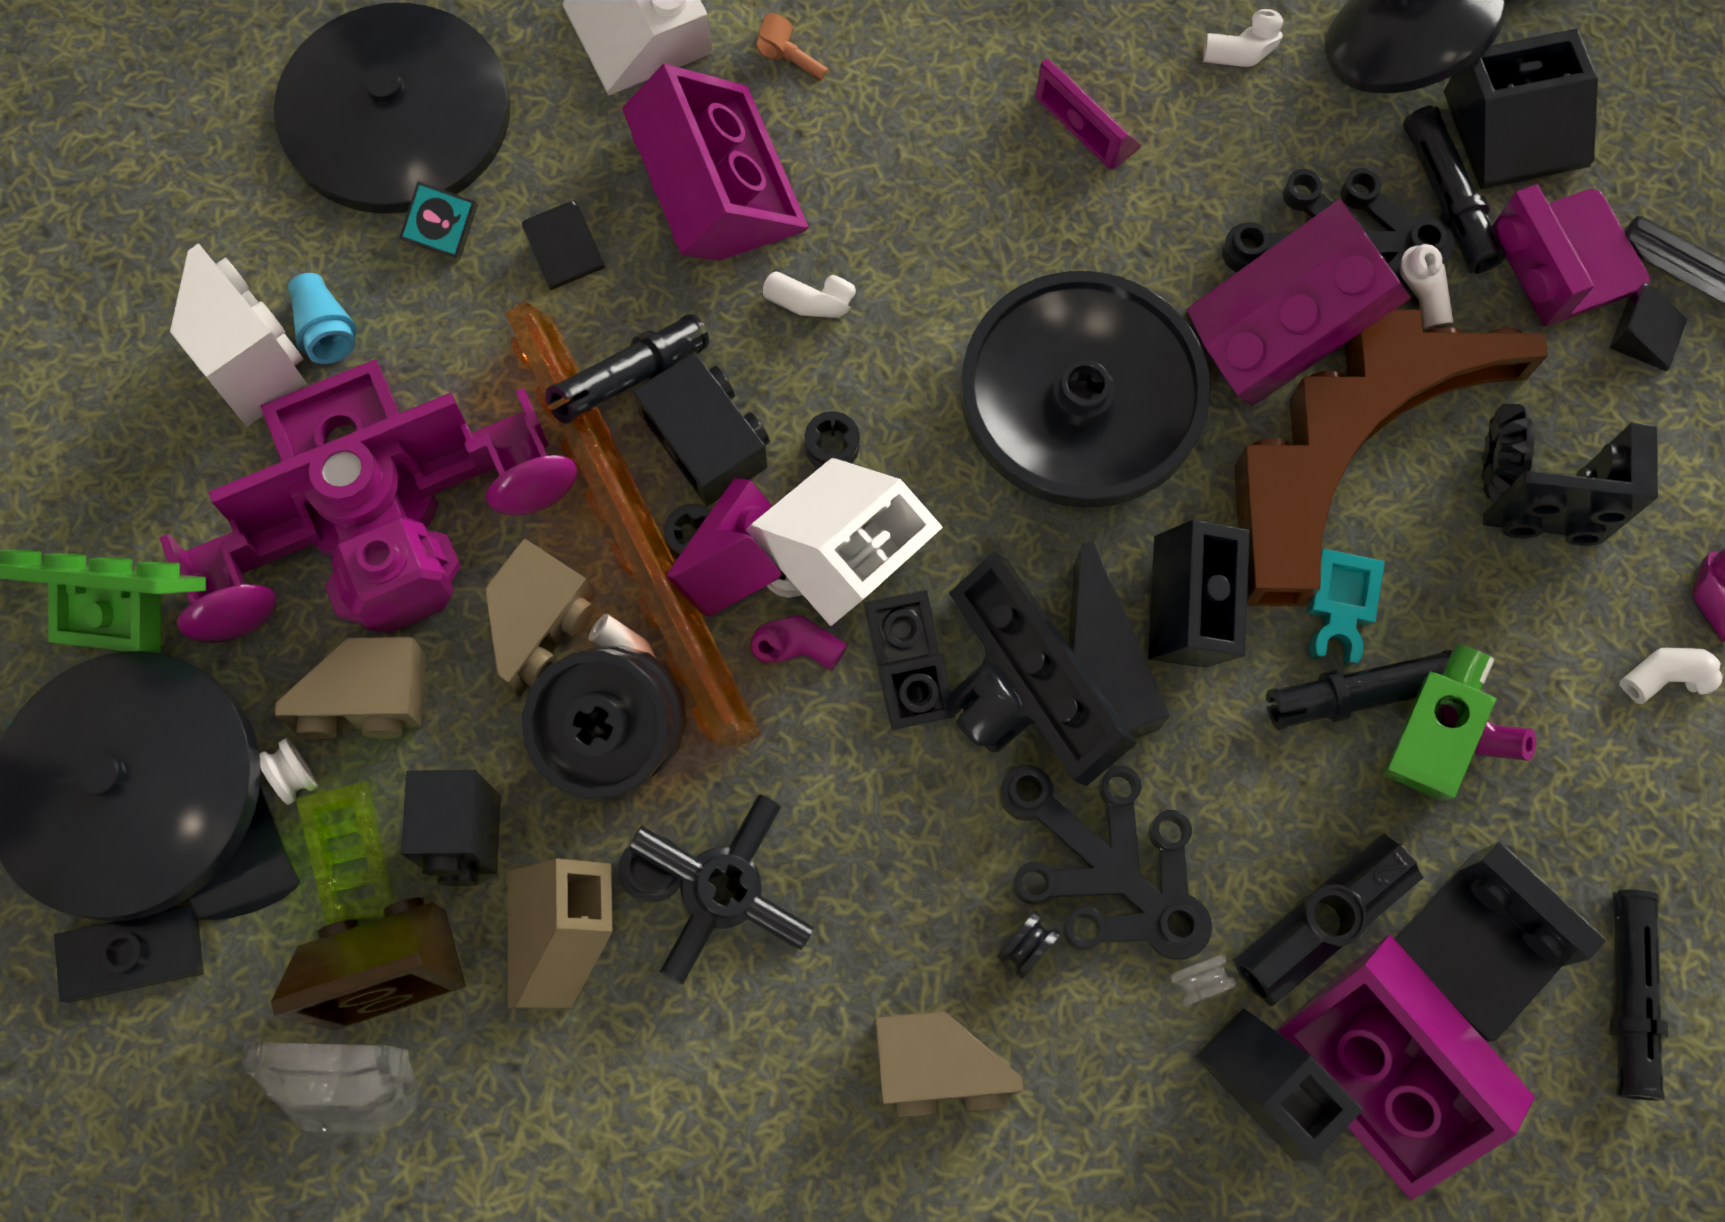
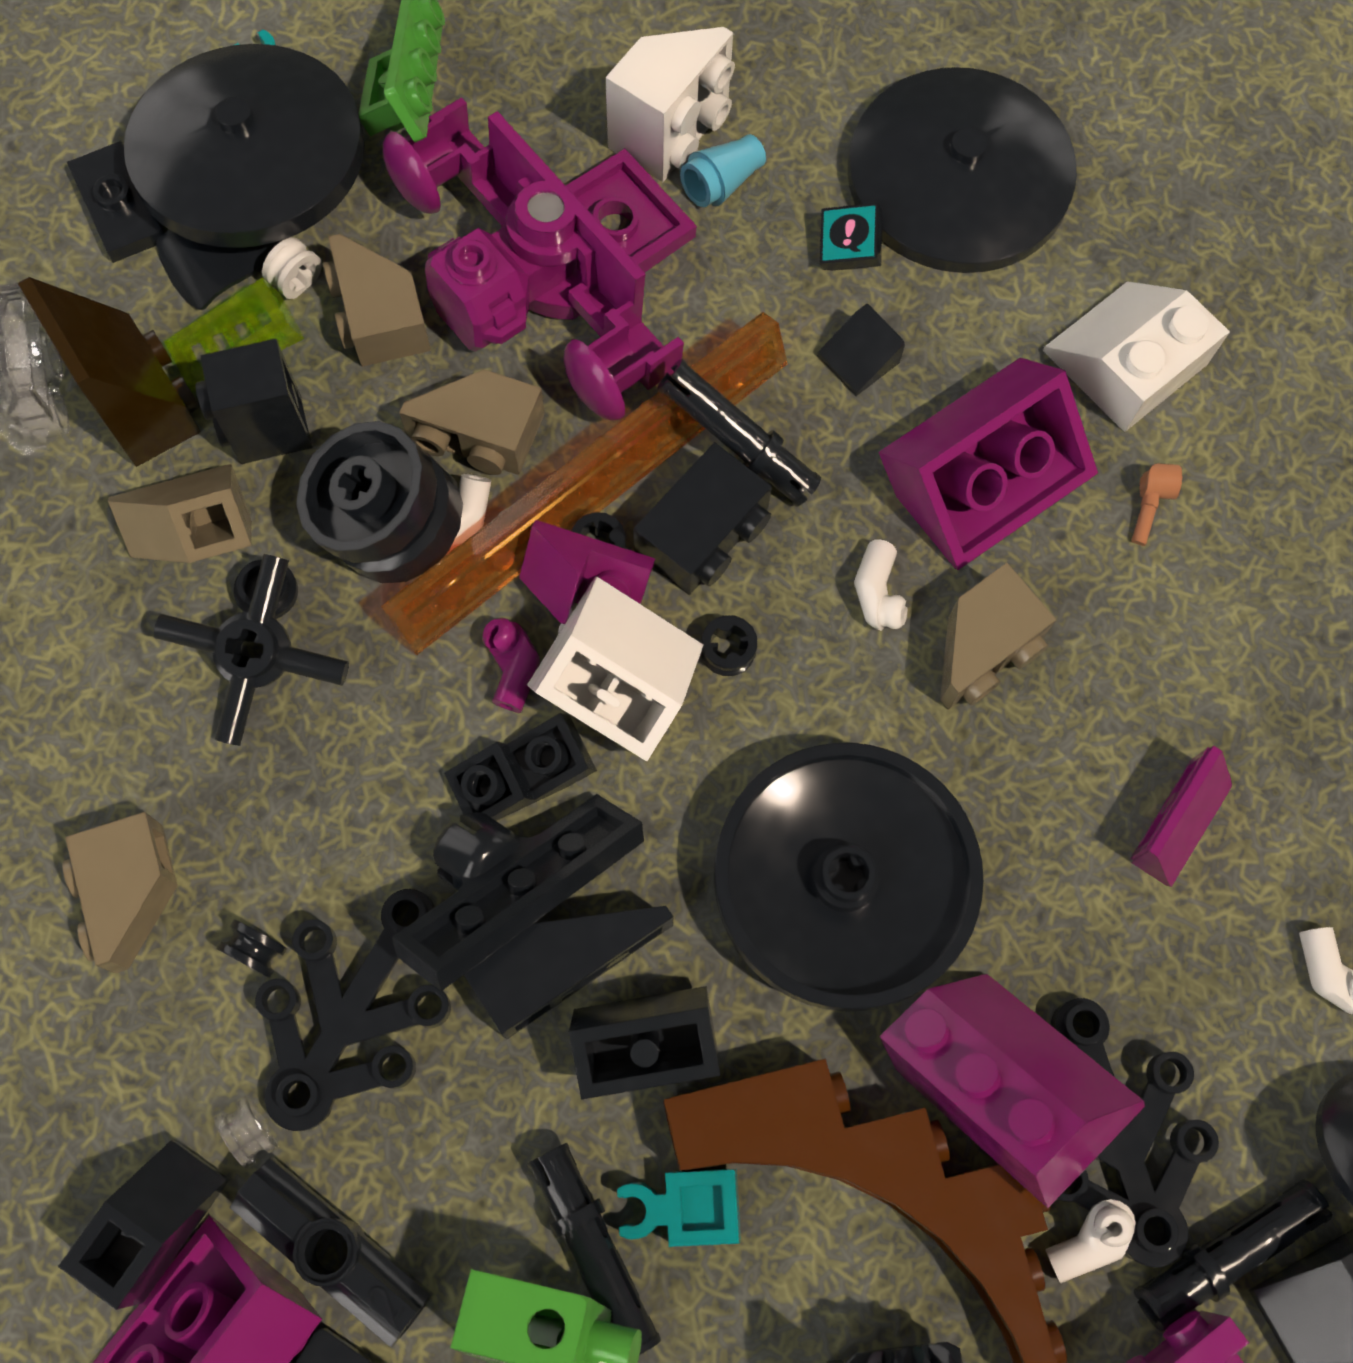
camera: 75 degrees right, 0 degrees up
(884, 214) = (987, 631): none -> dark tan slope

